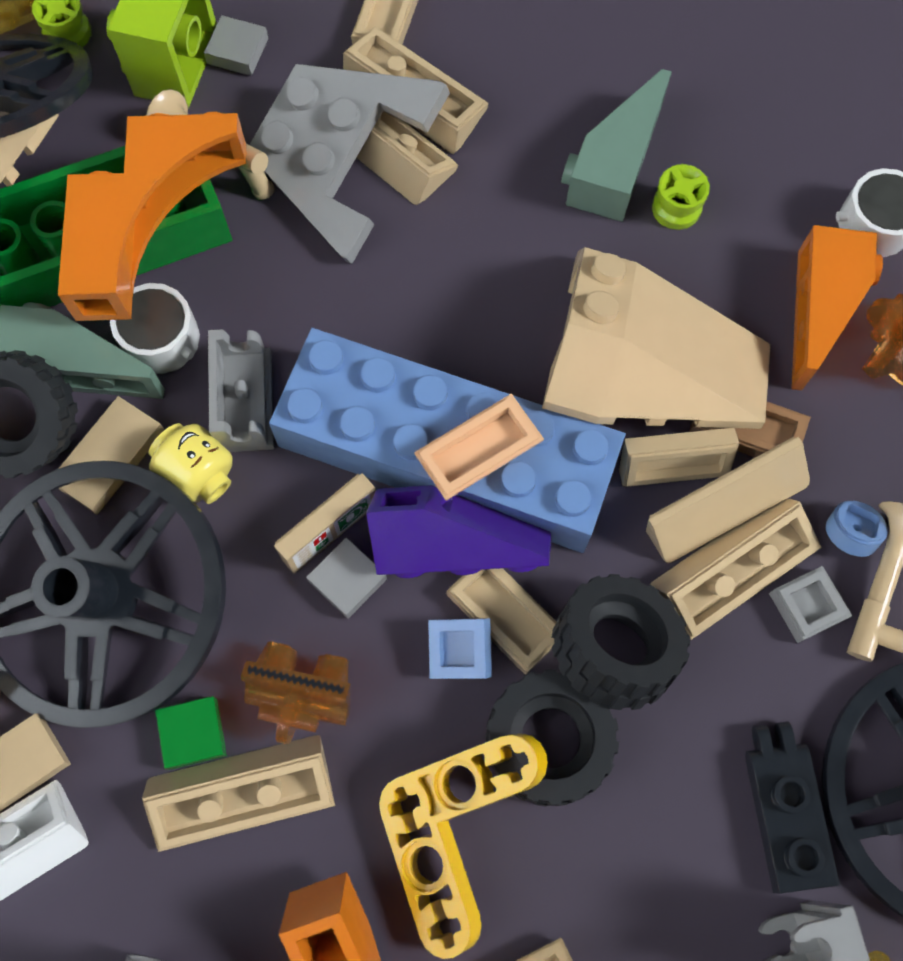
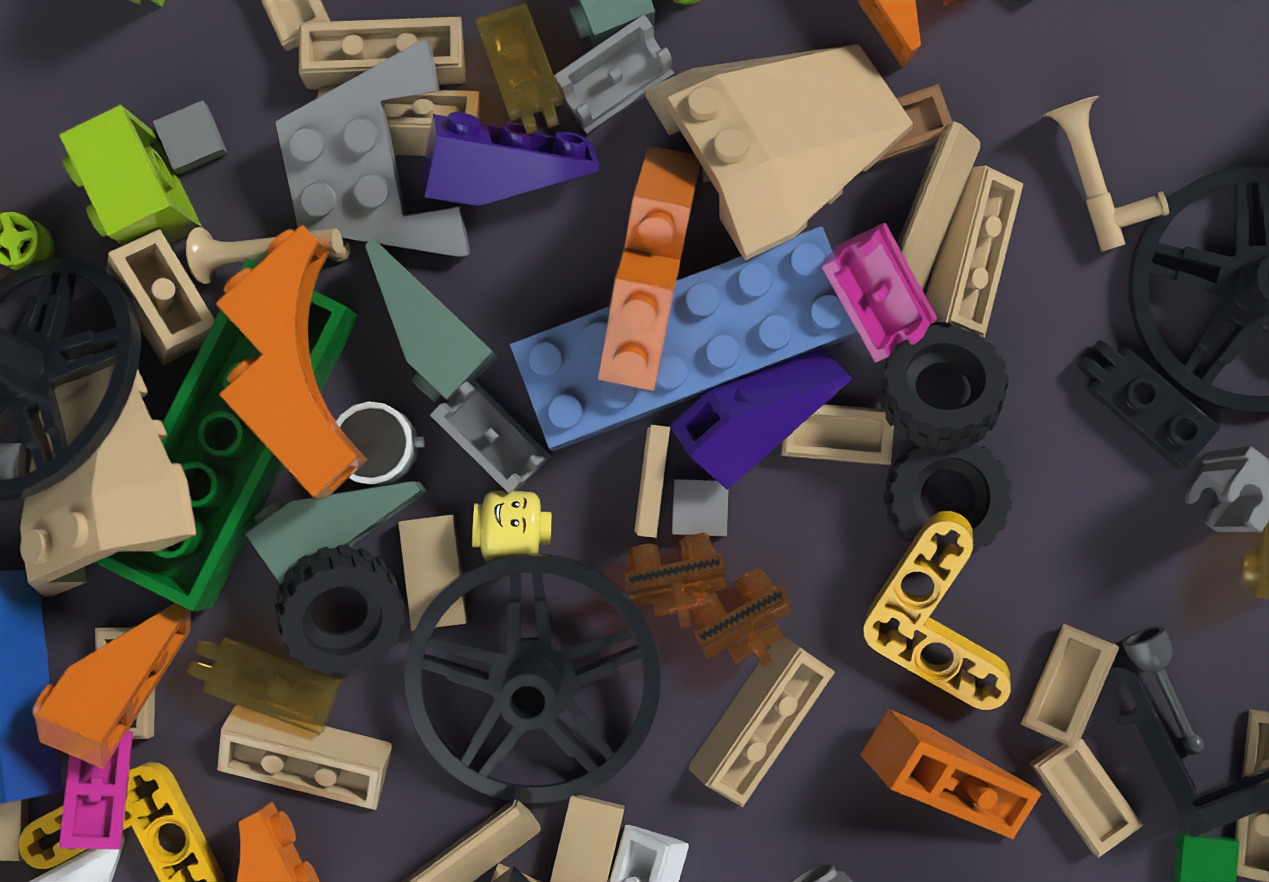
camera: 40 degrees left, 15 degrees up
(112, 95) = (163, 295): none -> tan brick
(190, 733) = (691, 712): green tile -> none
(267, 282) = (429, 333): none -> sand green slope
(272, 616) = (676, 585): none -> clear orange hips
(416, 203) = (492, 162): none -> dark purple slope
(442, 353) = (649, 268): none -> orange arch
(460, 648) = (830, 489): medium blue plate -> none
(478, 446) = (730, 335): light nougat tile -> none
(498, 161) = (520, 66): none -> clear yellow hinge
(562, 219) = (614, 75): none -> light grey hinge
(628, 516) = (879, 291): none -> dark pink hinge
(678, 457) = (871, 200): tan tile -> none
(810, 604) = (1049, 237): light grey tile -> none
(856, 528) = (1039, 148): medium blue tile -> none

